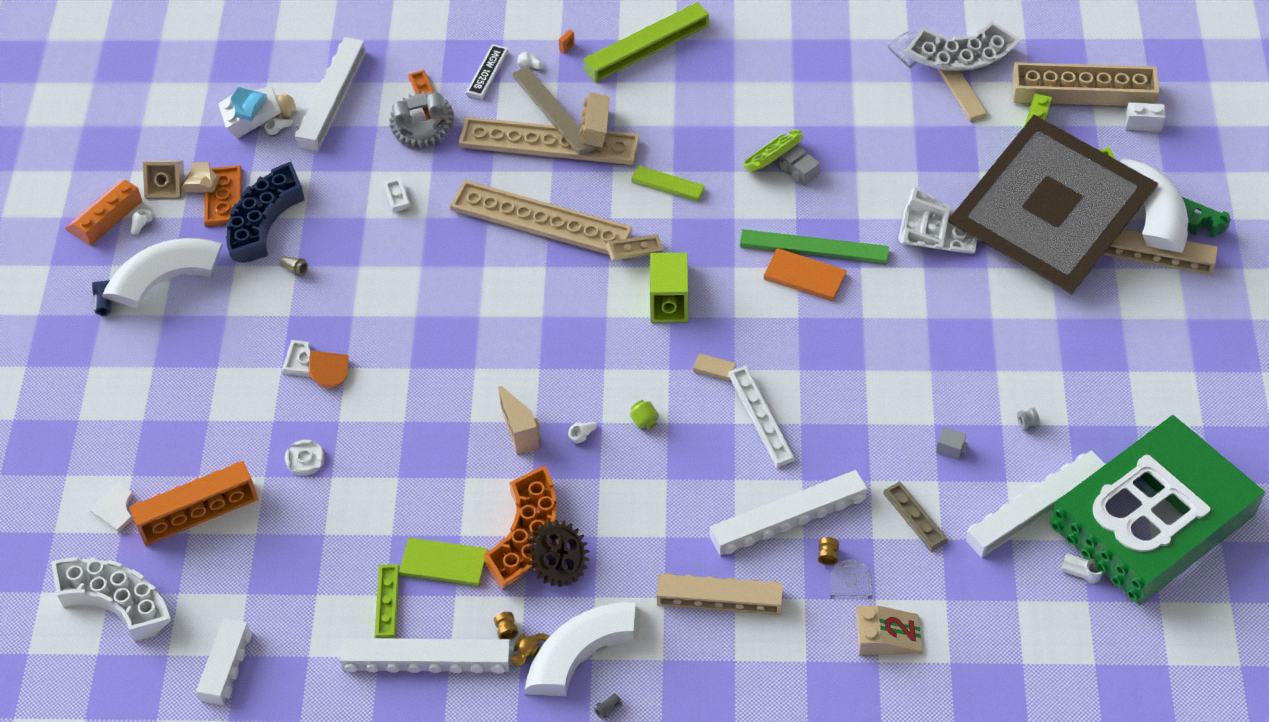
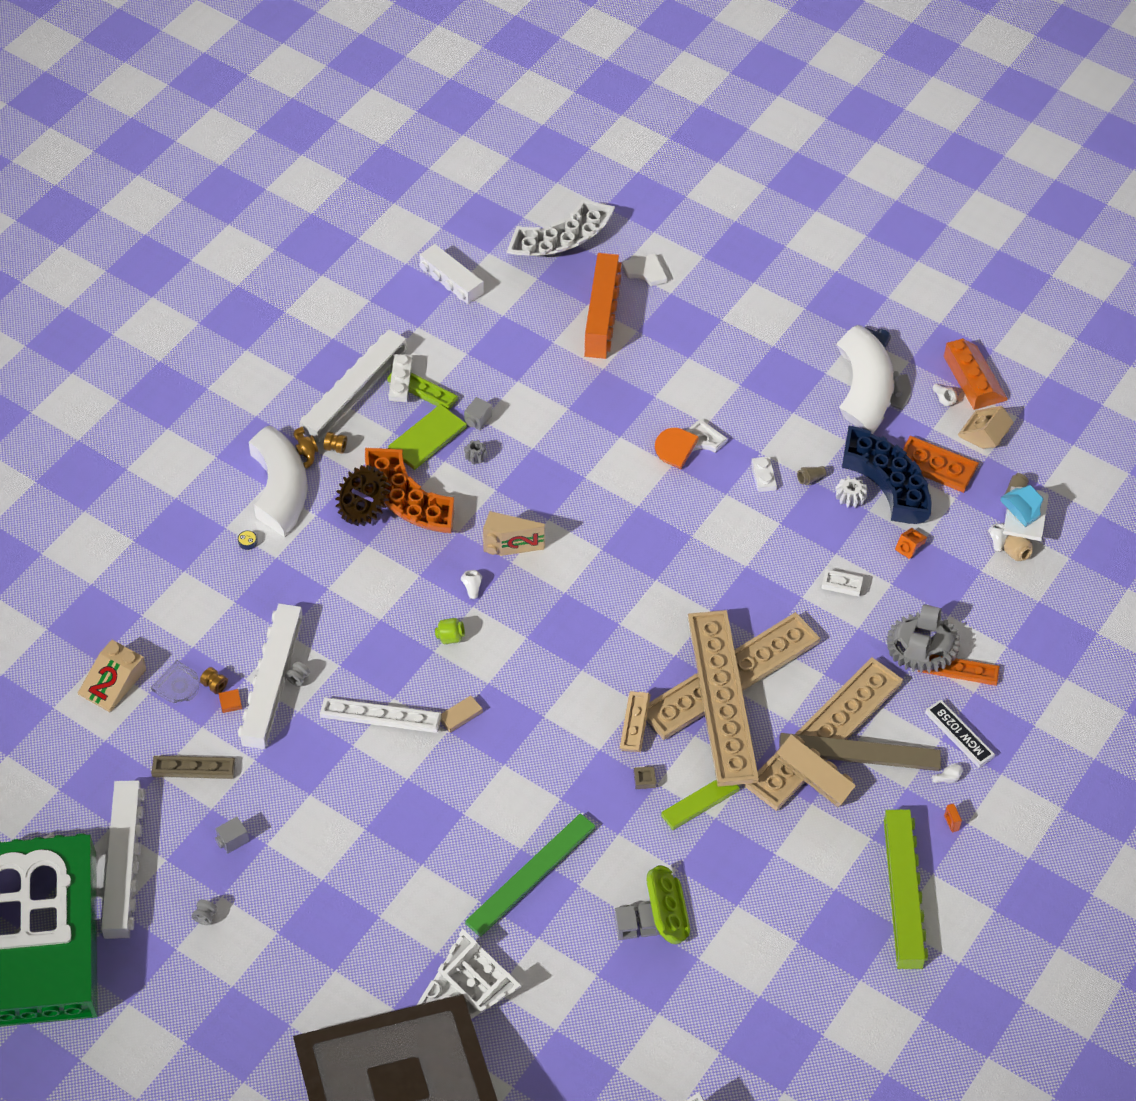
camera: 120 degrees right, 0 degrees up
(200, 179) = (959, 448): tan slope -> none
(217, 135) = (1017, 480): none -> dark tan cone
(296, 229) = (851, 492): none -> white gear
(304, 457) = (599, 398): white tile -> none
(314, 299) = (763, 474): none -> white plate
(323, 170) = (909, 542): none -> orange bracket
(330, 94) = (1012, 592): white brick -> none
(391, 533) = (478, 413): none -> light grey brick
(391, 619) = (400, 378): none -> white plate
(438, 509) = (475, 452): none -> light grey gear
(569, 204) = (722, 698): none -> tan plate
(604, 708) = (216, 470): dark grey pin -> none
(665, 629) = (247, 540): none -> tile
(668, 287) = (572, 724): lime slope -> none
(676, 222) = (644, 777): none -> dark tan plate
(719, 594) = (241, 587): tan brick -> none
(771, 494) = (297, 673): none -> light grey wheel
(805, 274) = (504, 846): orange tile -> none
(835, 529) = (230, 701): none -> orange tile

